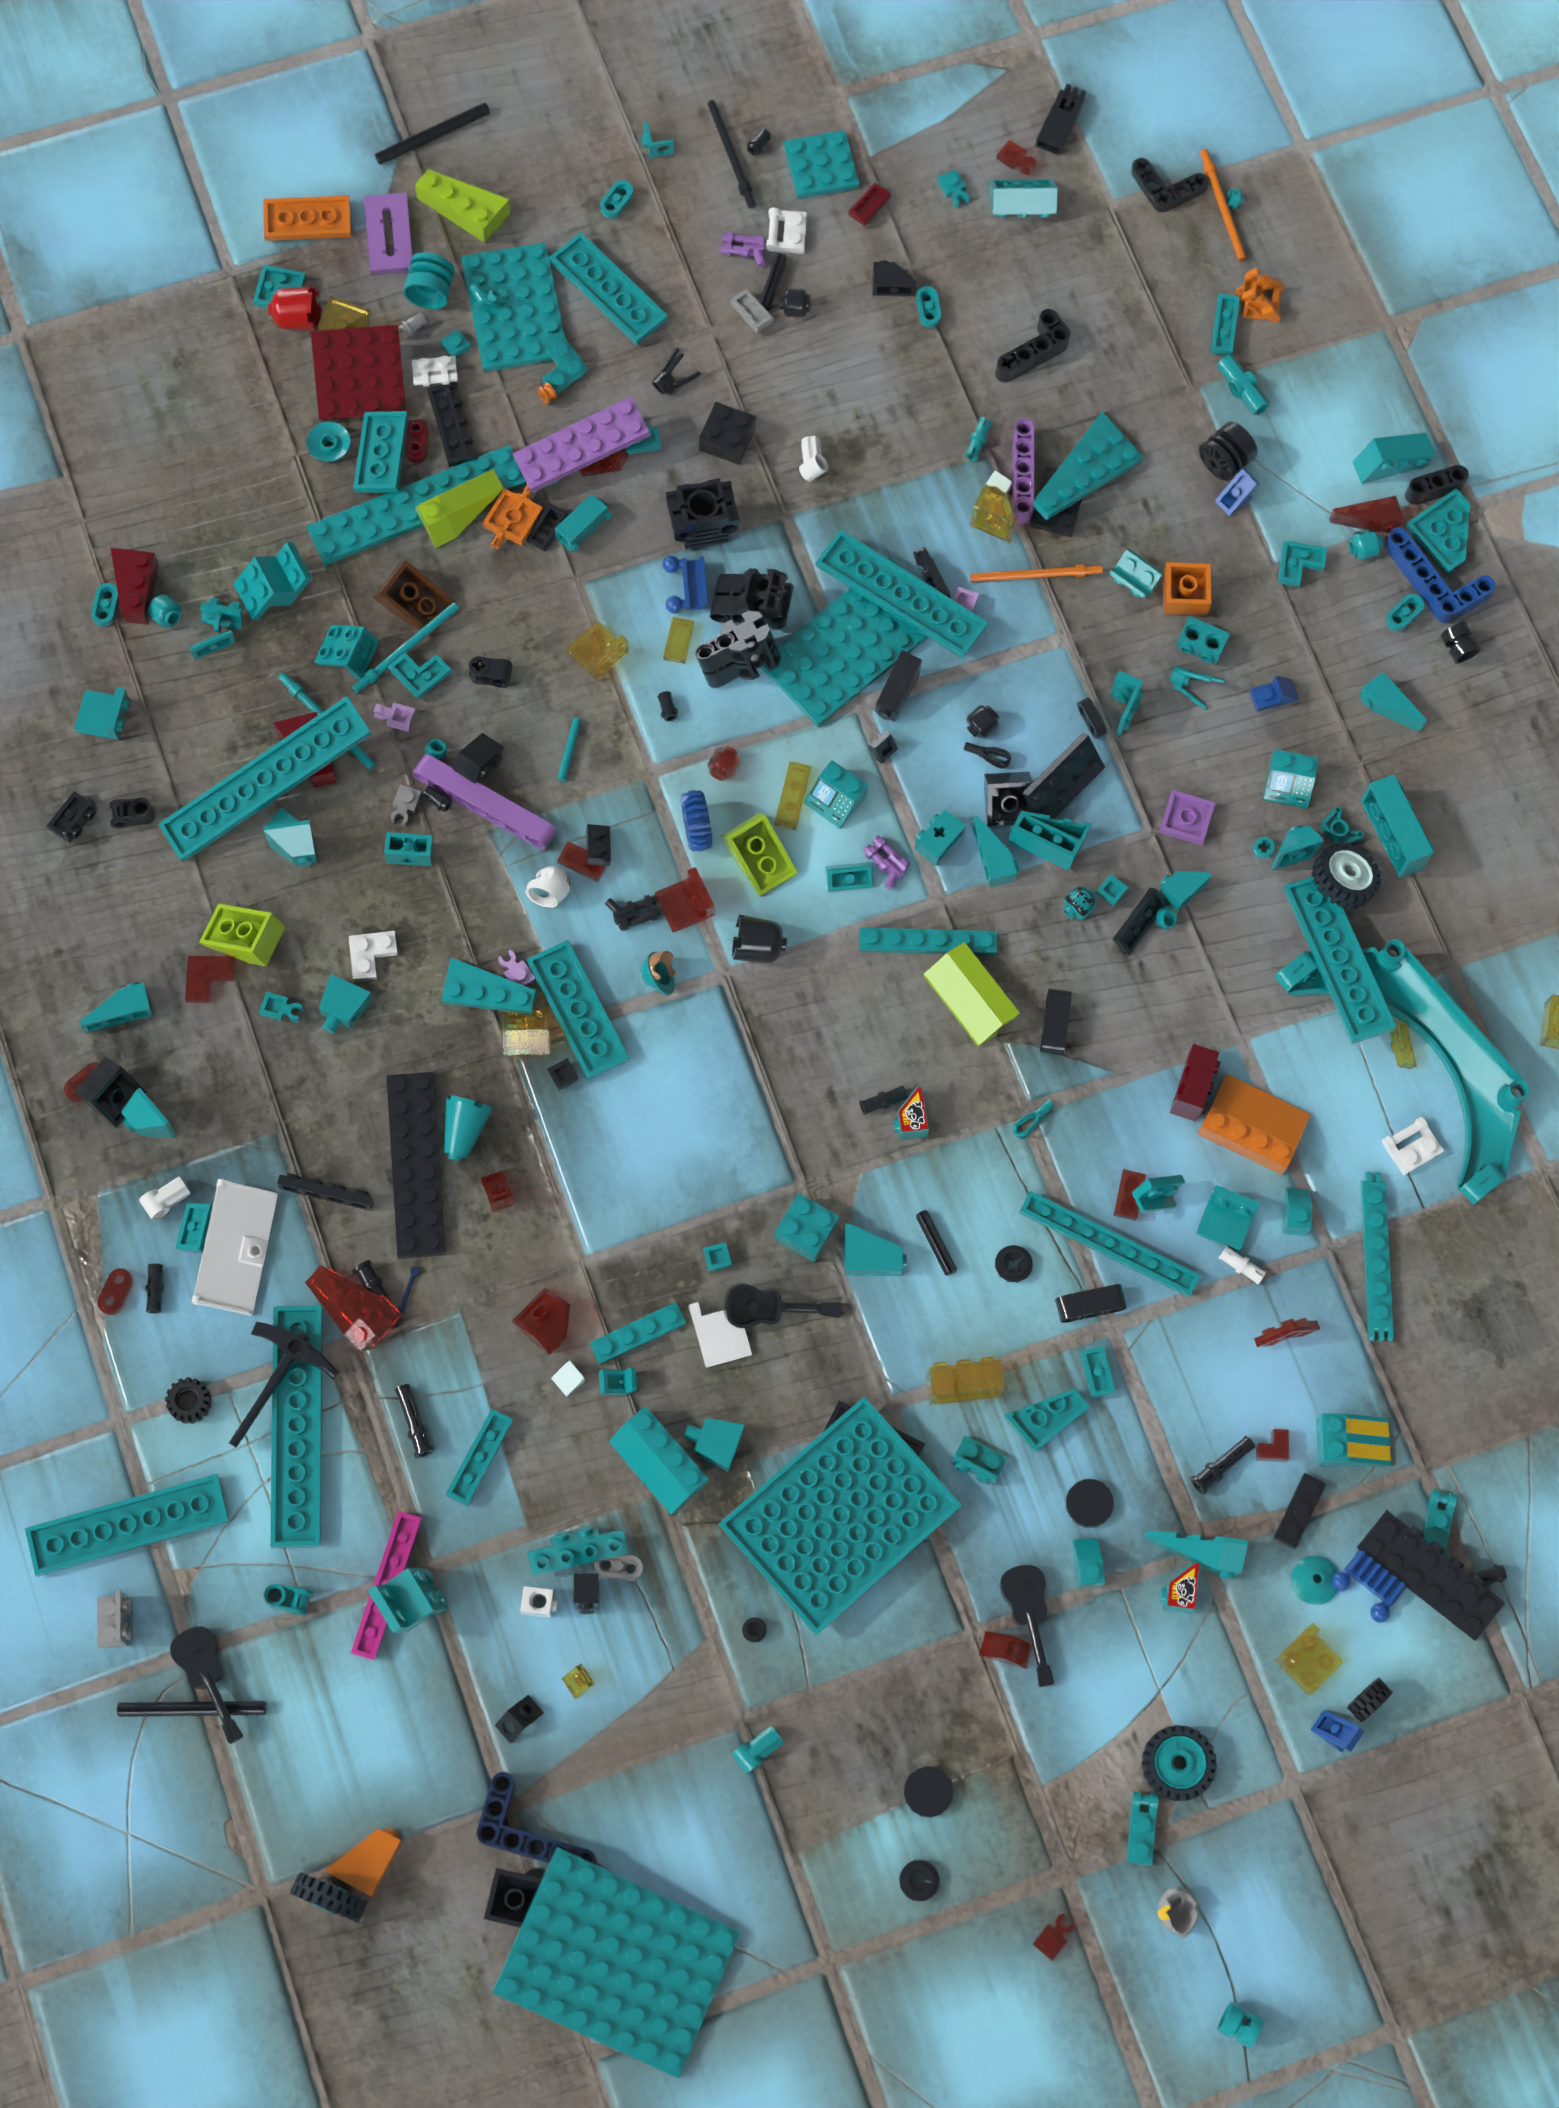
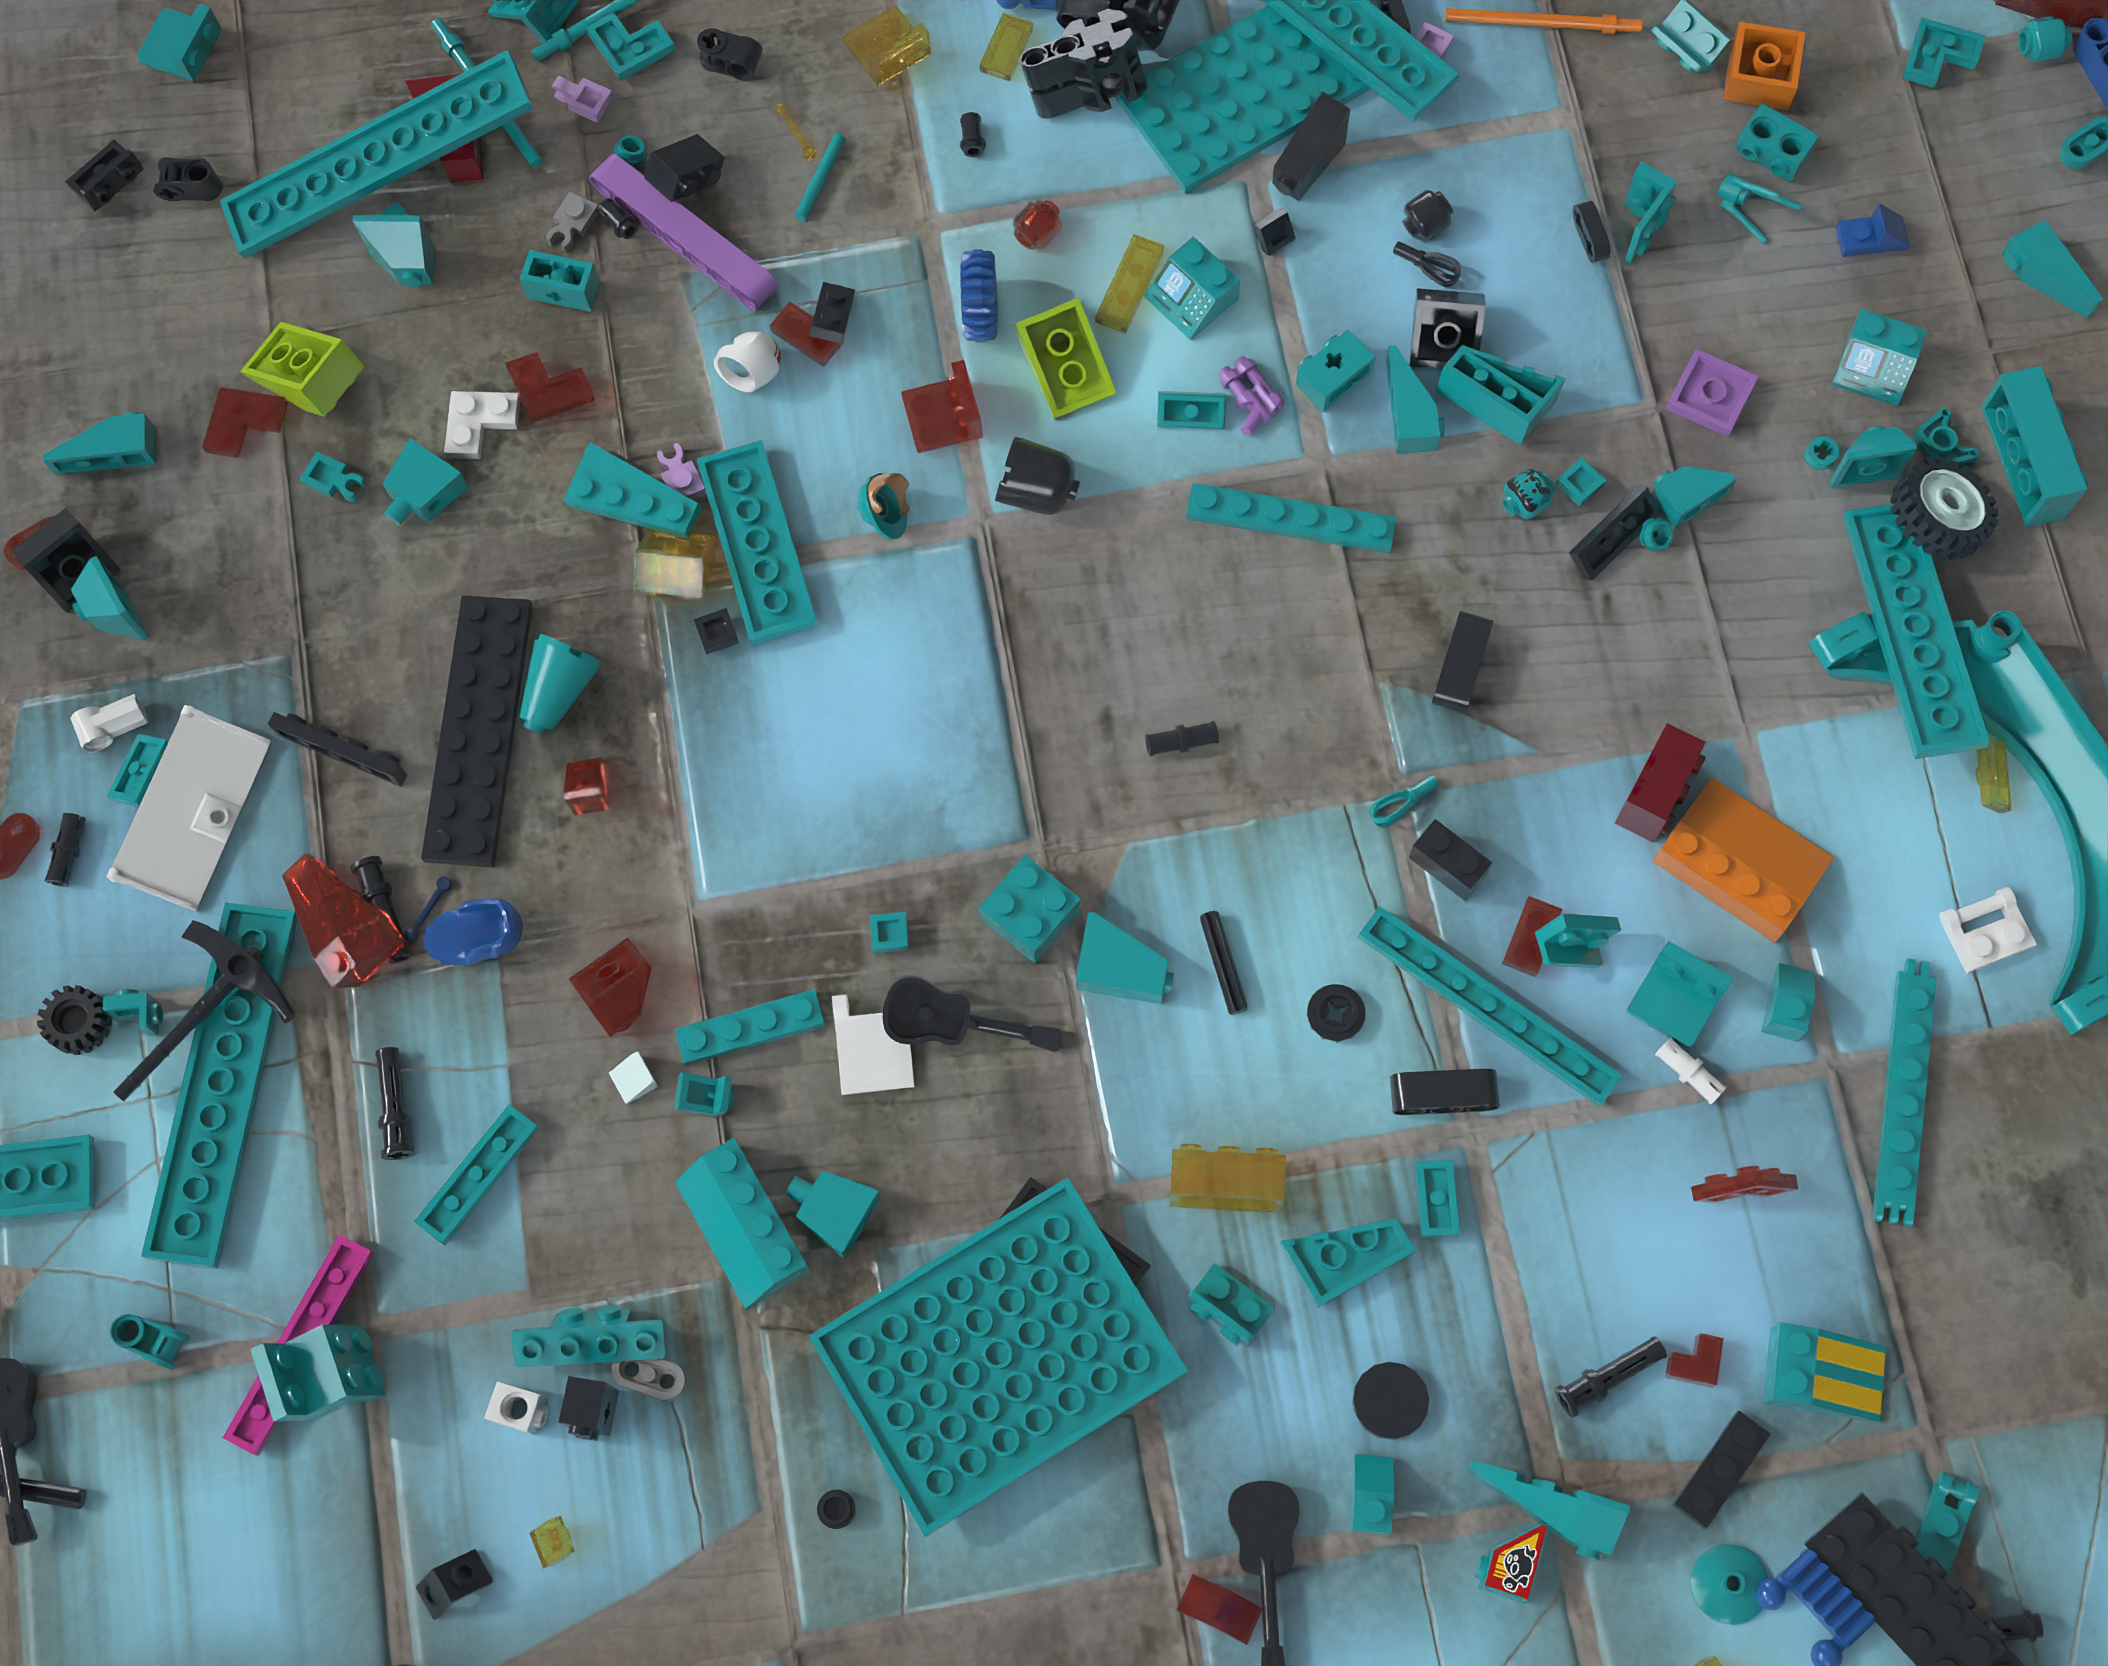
camera: 20 degrees right, 0 degrees up
(225, 1383) = (131, 1003): none -> teal bracket
(414, 930) = (545, 395): none -> clear red plate
(445, 1300) = (474, 932): none -> blue hair
(557, 731) = (808, 150): none -> clear yellow hinge
(627, 916) = (855, 420): black piece -> none
(912, 1117) = (1219, 769): slope -> none
(971, 994) = (1341, 602): slope -> none
(1064, 778) = (1536, 308): black plate -> none
(1069, 1153) = (1450, 860): none -> black brick

